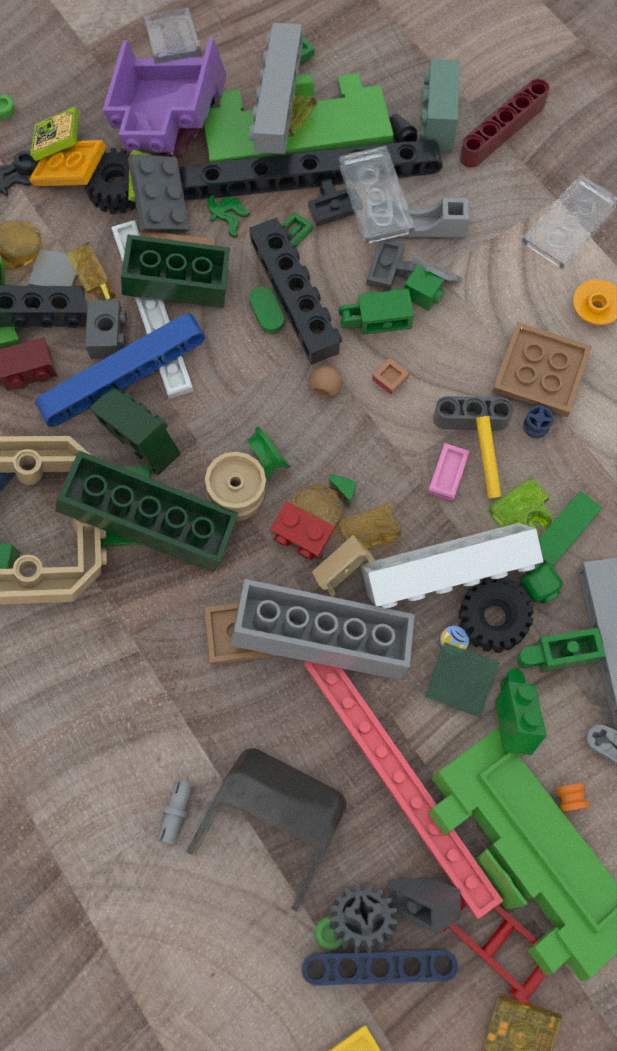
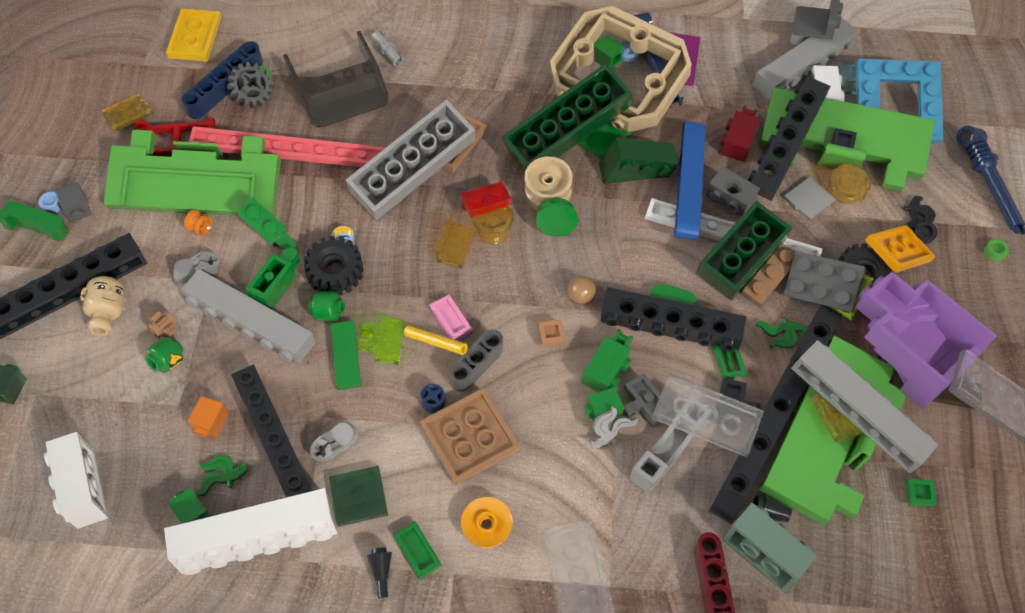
camera: 125 degrees right, 10 degrees down
(55, 134) = (937, 258): tile -> none
(90, 271) = (789, 206): clear yellow bracket -> none
(341, 564) = (443, 201): tan hinge -> none
(344, 487) = (494, 244): green slope -> none
(426, 902) = (225, 115): dark grey slope -> none
(451, 564) = (384, 255): white brick -> none
(462, 679) = (316, 220): clear green tile -> none

